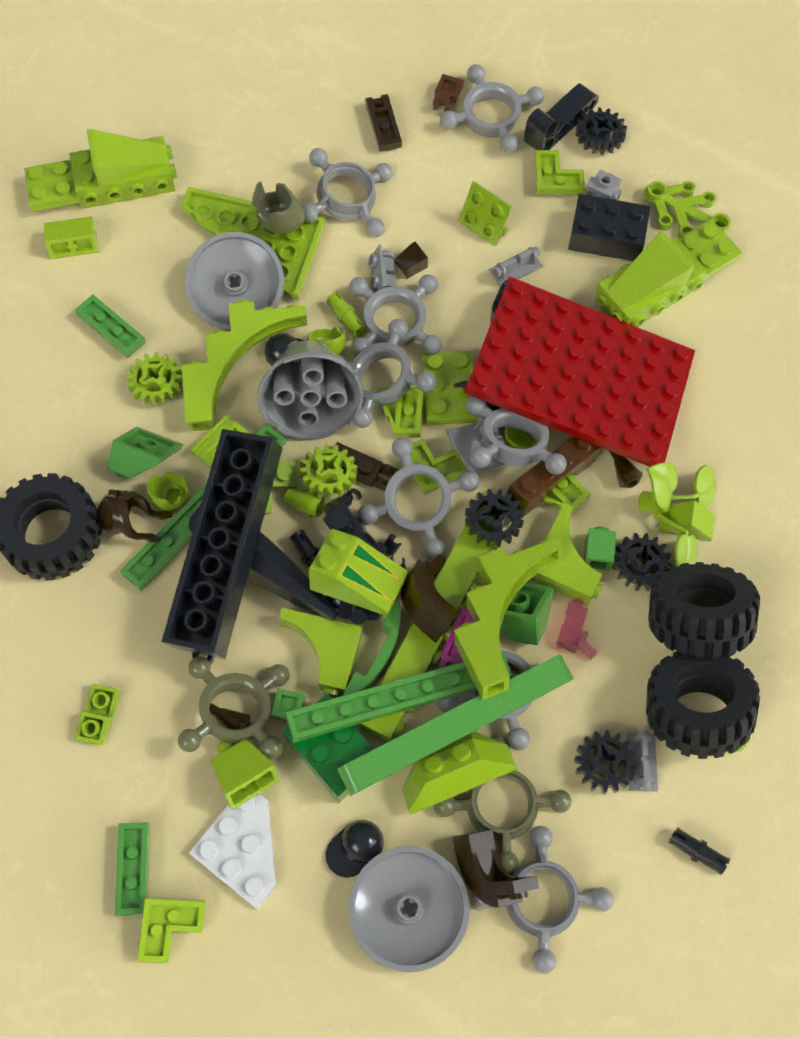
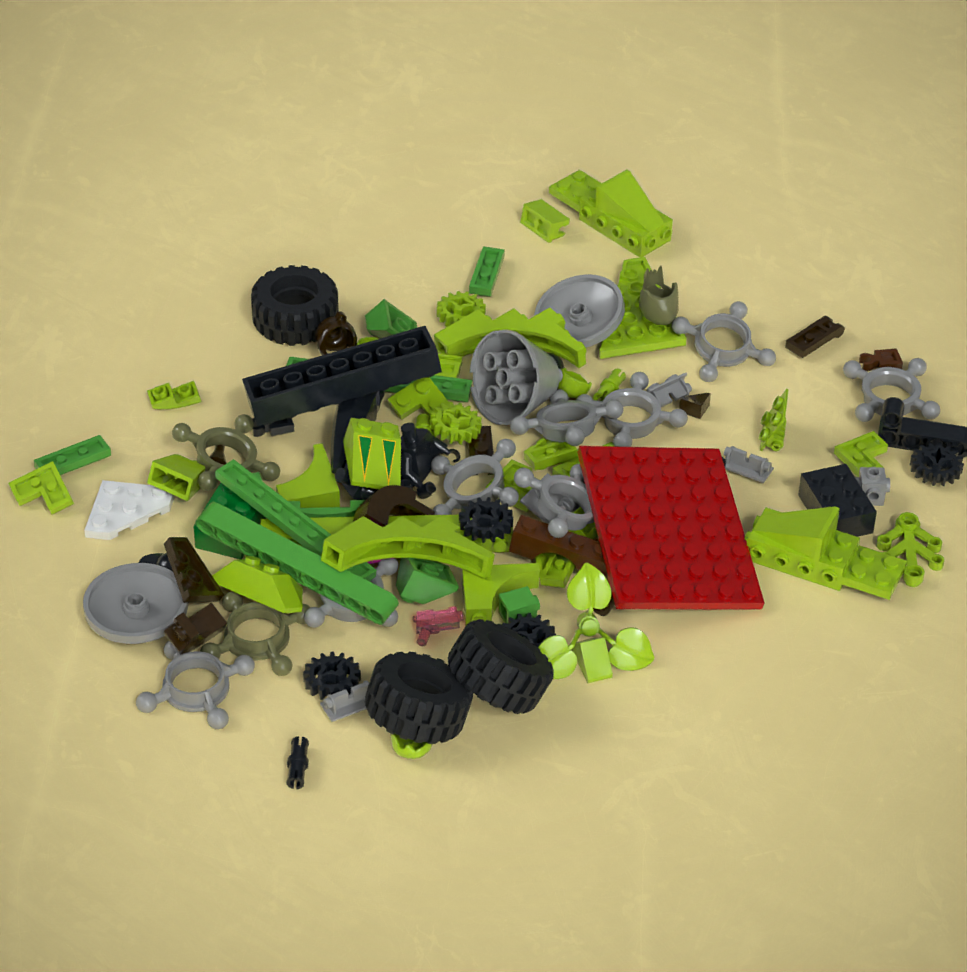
camera: 60 degrees right, 25 degrees down
(402, 831) = (190, 572): none -> dark brown wing

